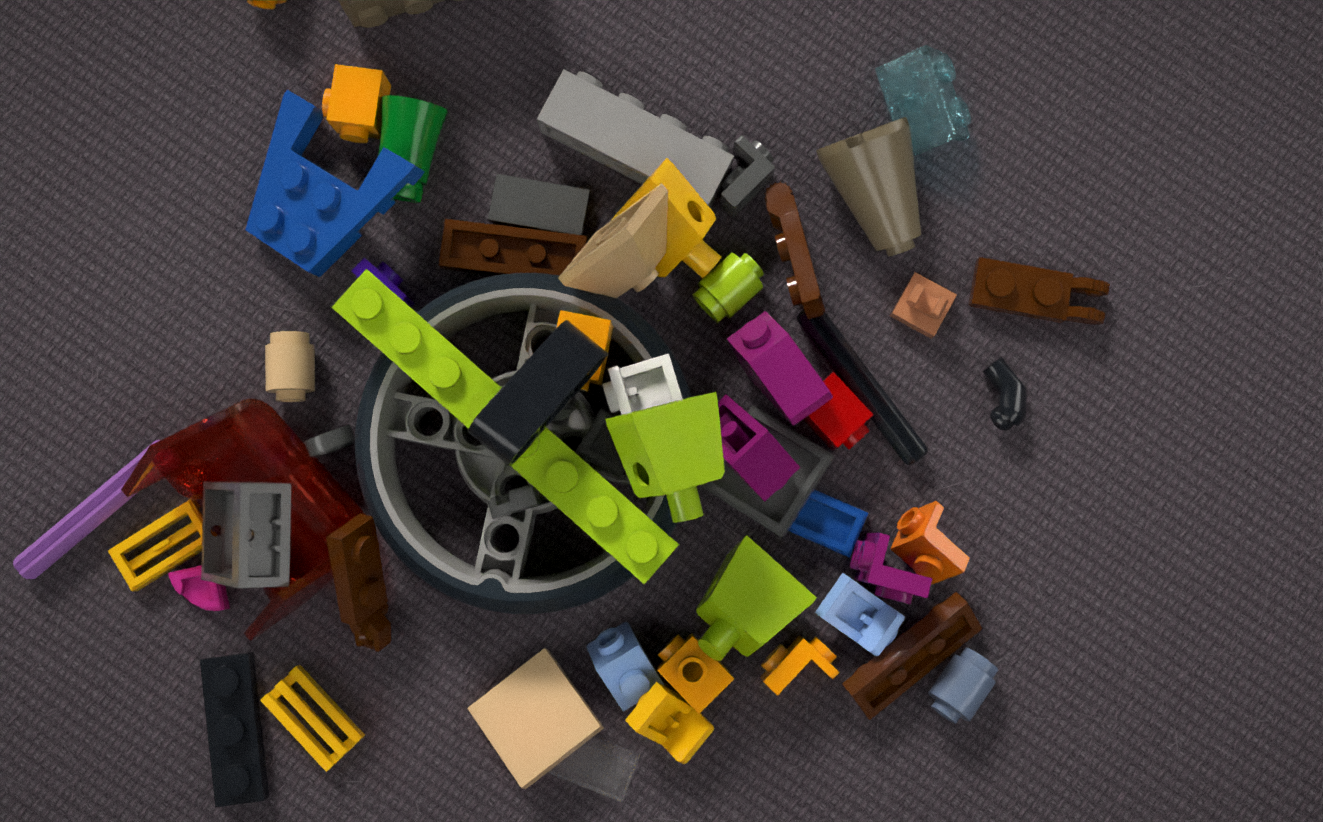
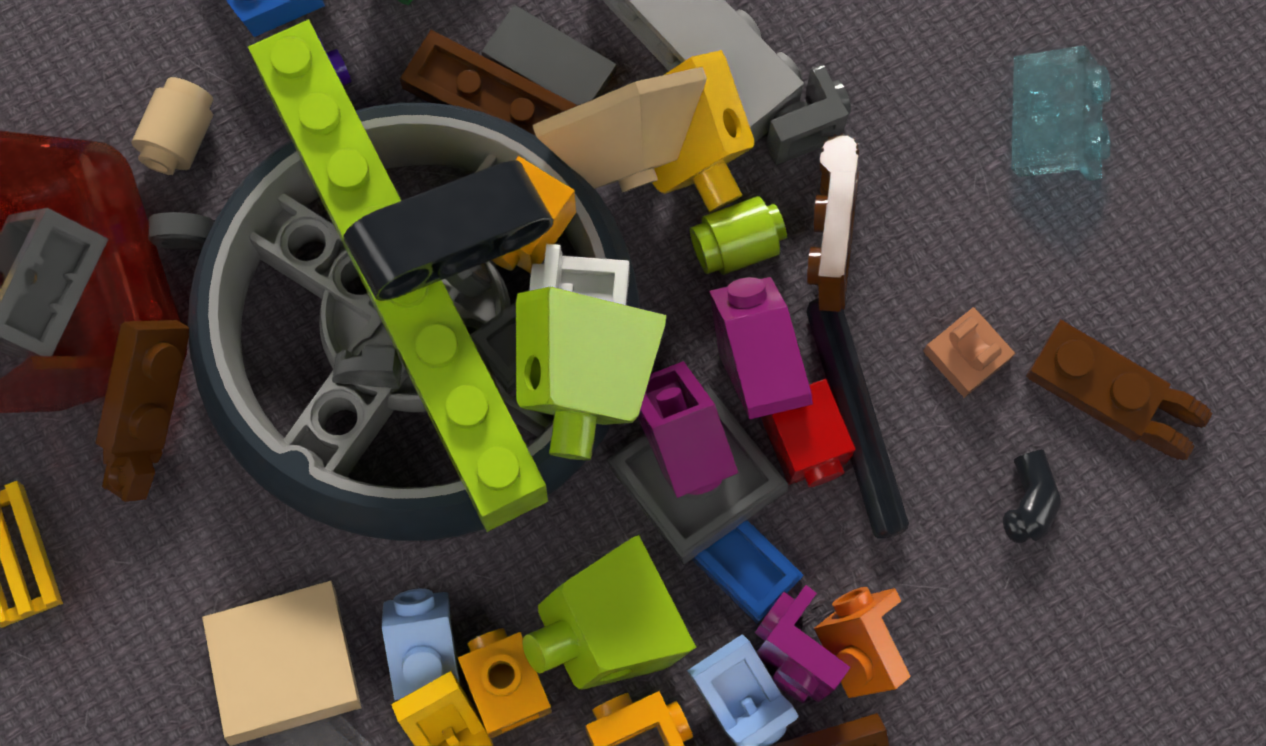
camera: 15 degrees right, 10 degrees down
(878, 183) = (967, 179): dark tan cone -> none

